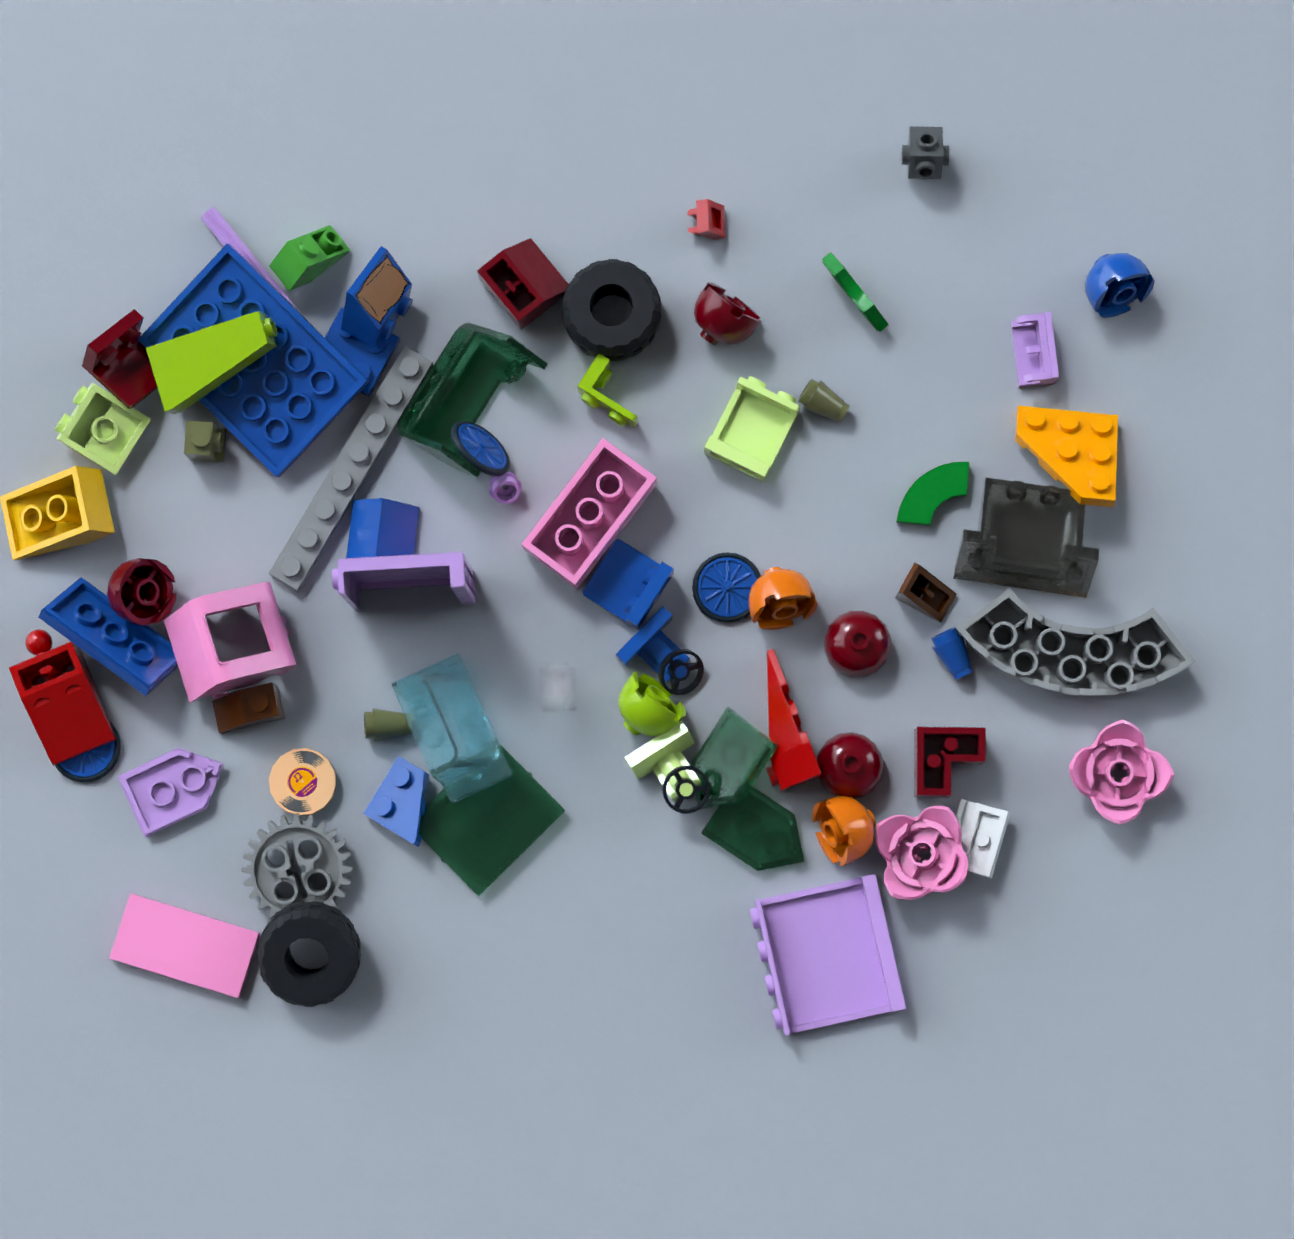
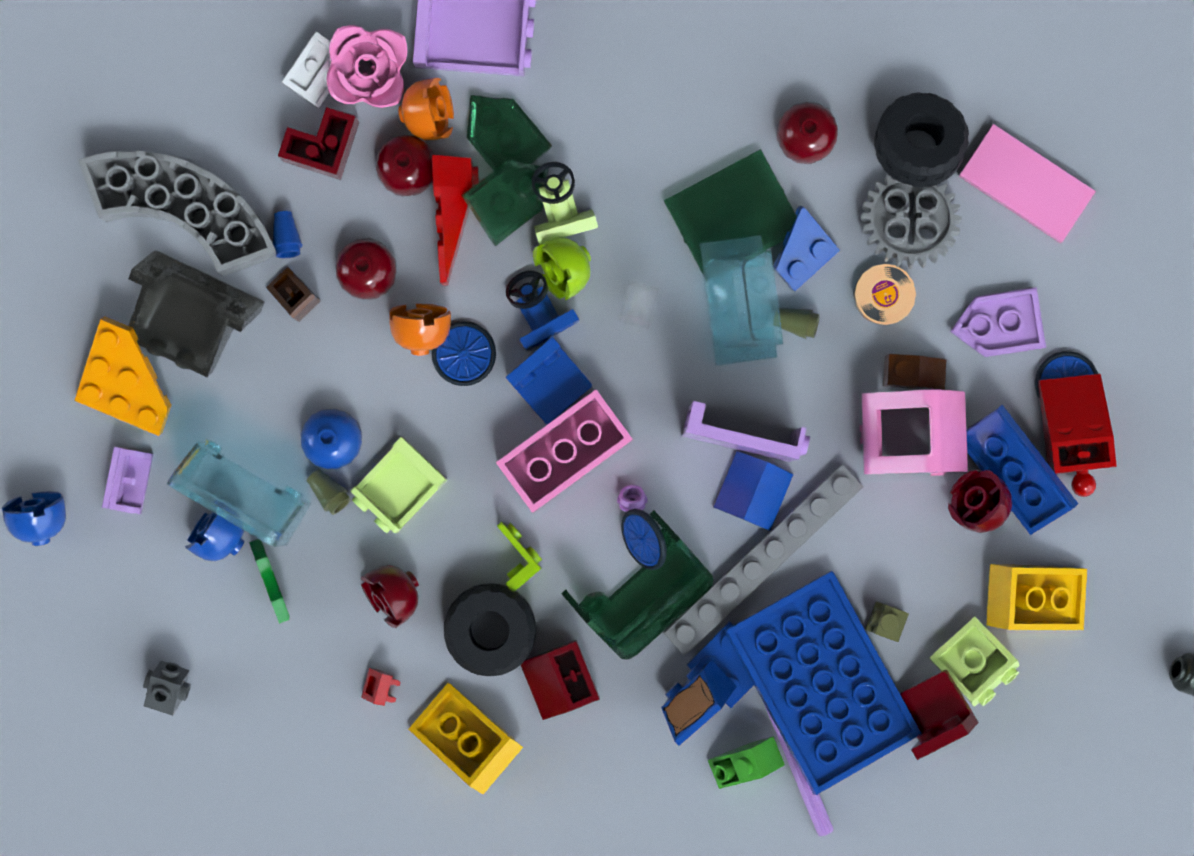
camera: 165 degrees left, 5 degrees up
(206, 358) = (870, 692): lime slope -> none
(434, 929) = (807, 132): none -> dark red cylinder
(604, 195) = (465, 738): none -> yellow slope
(838, 457) = (331, 439): none -> blue cylinder
(914, 361) = (239, 494): none -> clear light blue windscreen
(924, 323) = (214, 538): none -> blue cylinder
(931, 491) = (259, 383): green tile -> none
(1146, 772) = (154, 76): bright pink brick -> none

